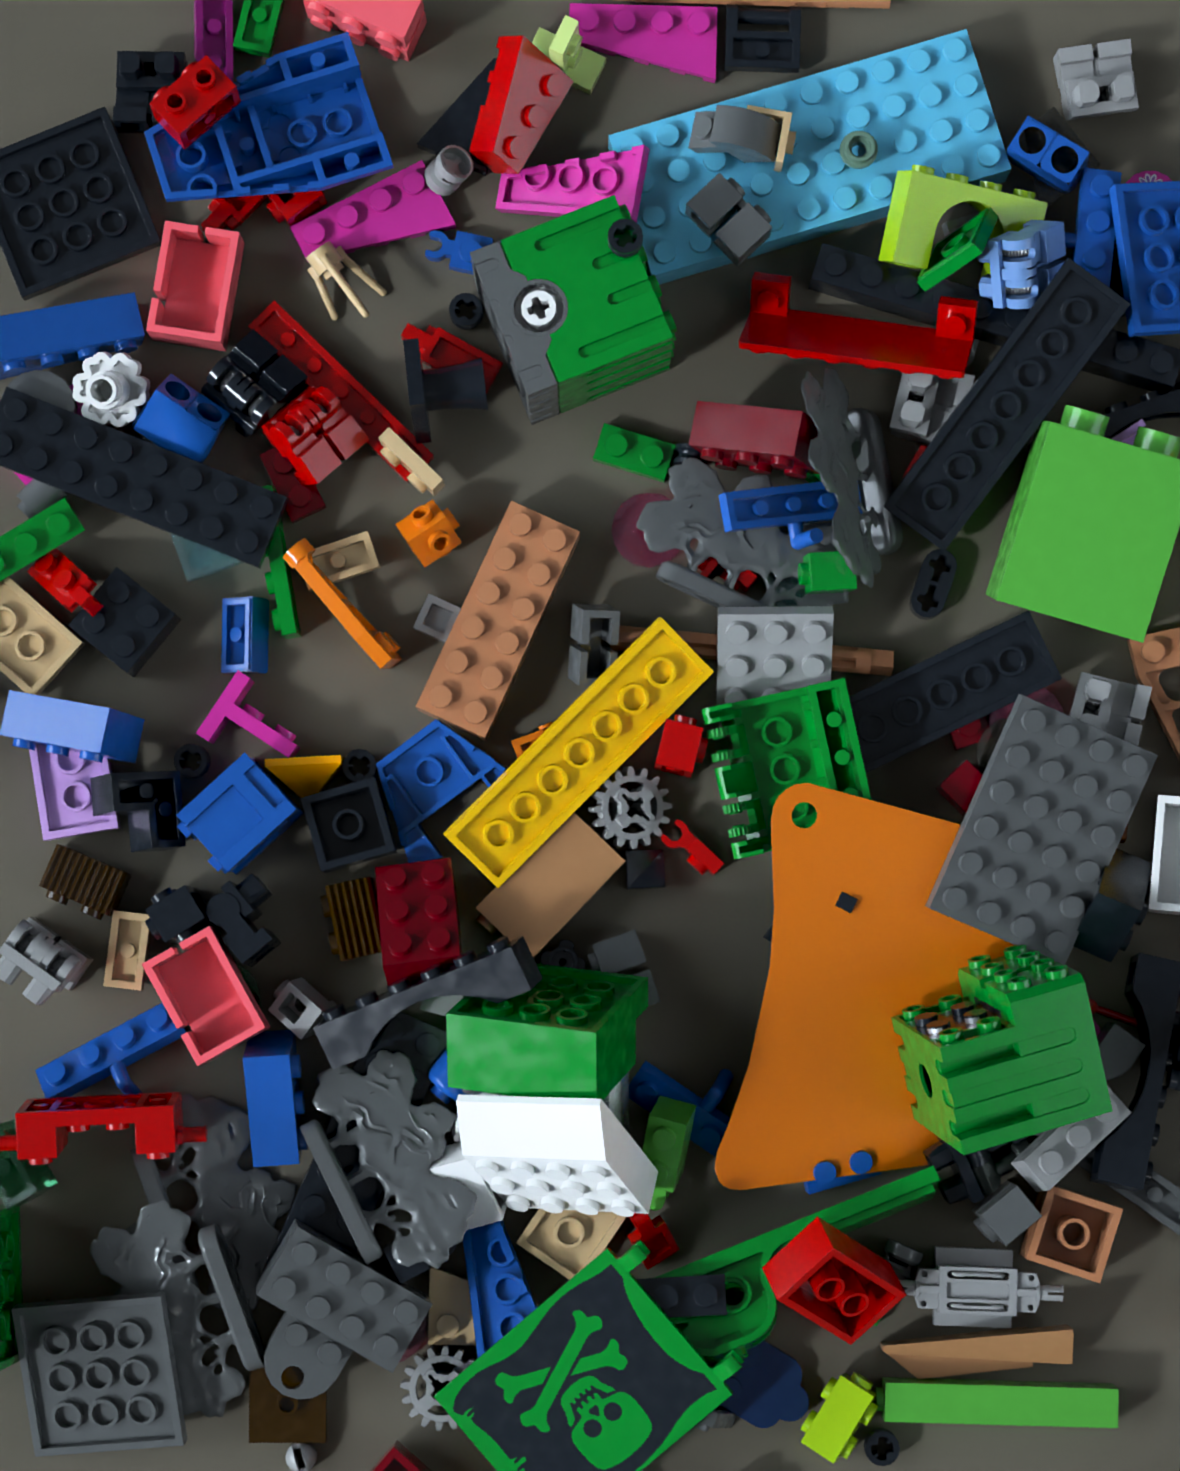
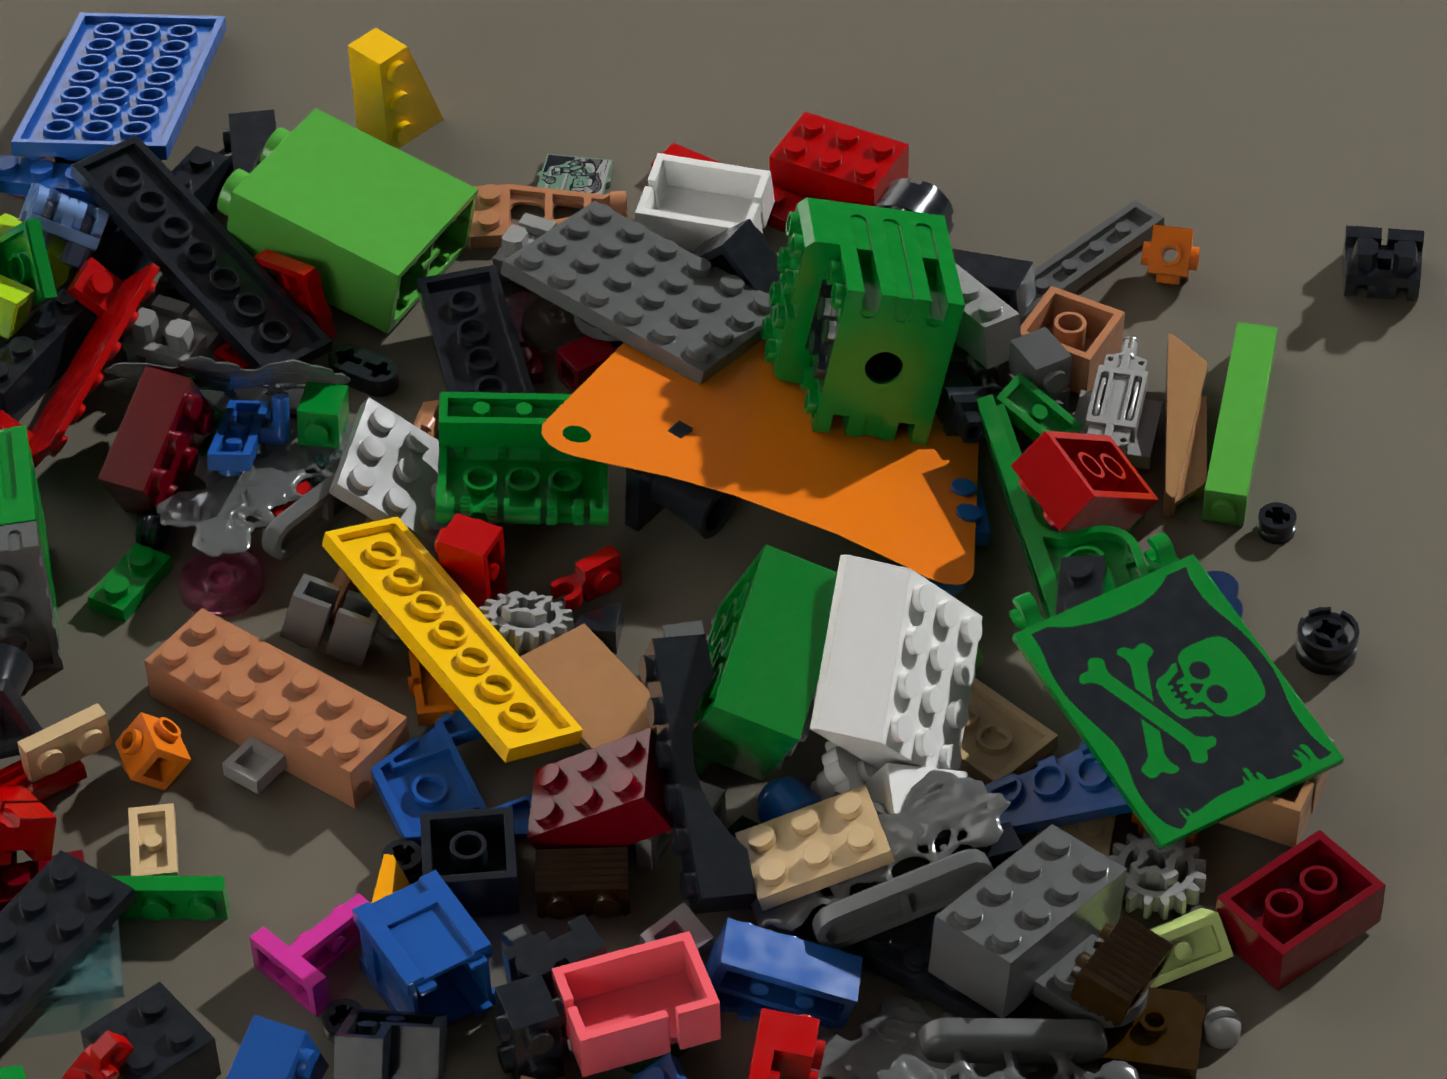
camera: 80 degrees left, 40 degrees down
(245, 635) = (205, 953): blue slope -> none
(296, 1378) = (1120, 969): none -> dark brown brick
(372, 1411) = (1197, 942): none -> yellowish green panel
(378, 645) = (270, 808): orange plate -> none
(386, 1109) = (815, 847): none -> tan plate
(655, 1236) = (1009, 667): red plate -> none
(845, 1408) = (1238, 537): lime brick -> none
(950, 1218) = (1034, 410): none -> green plate
(997, 508) = (302, 284): none -> red wing

